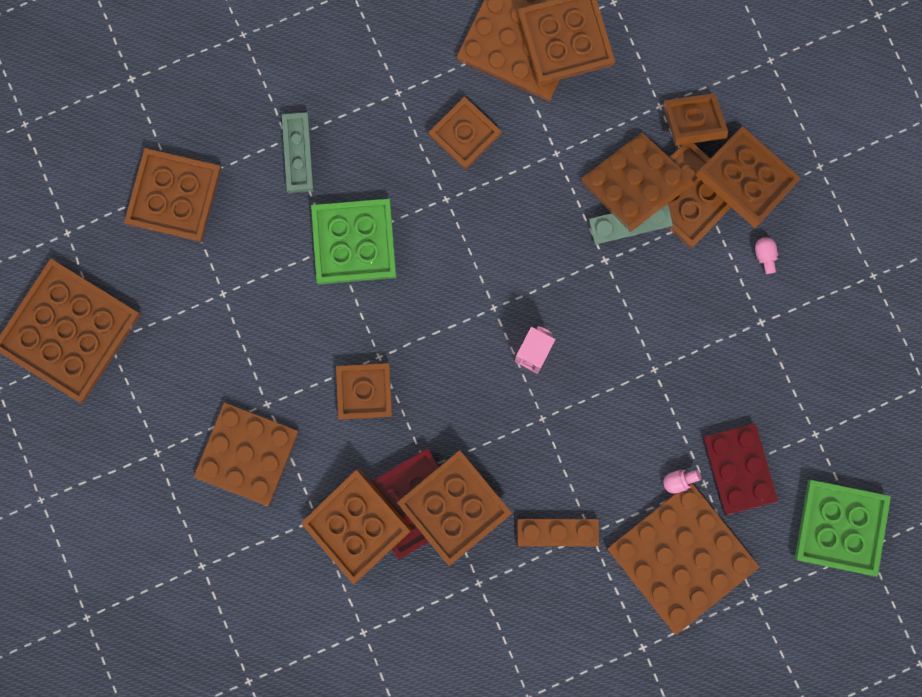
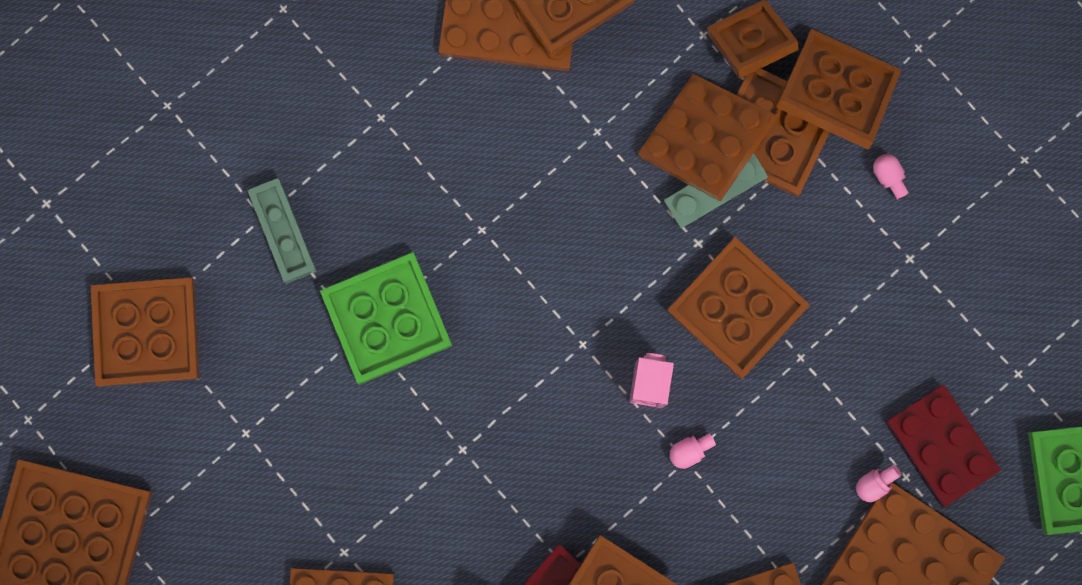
camera: 20 degrees left, 0 degrees up
(364, 391) = (458, 499): dark orange plate -> none
(464, 133) = (479, 142): dark orange plate -> none
(548, 412) = (690, 451): none -> bright pink cylinder
(618, 317) = (738, 308): none -> dark orange plate

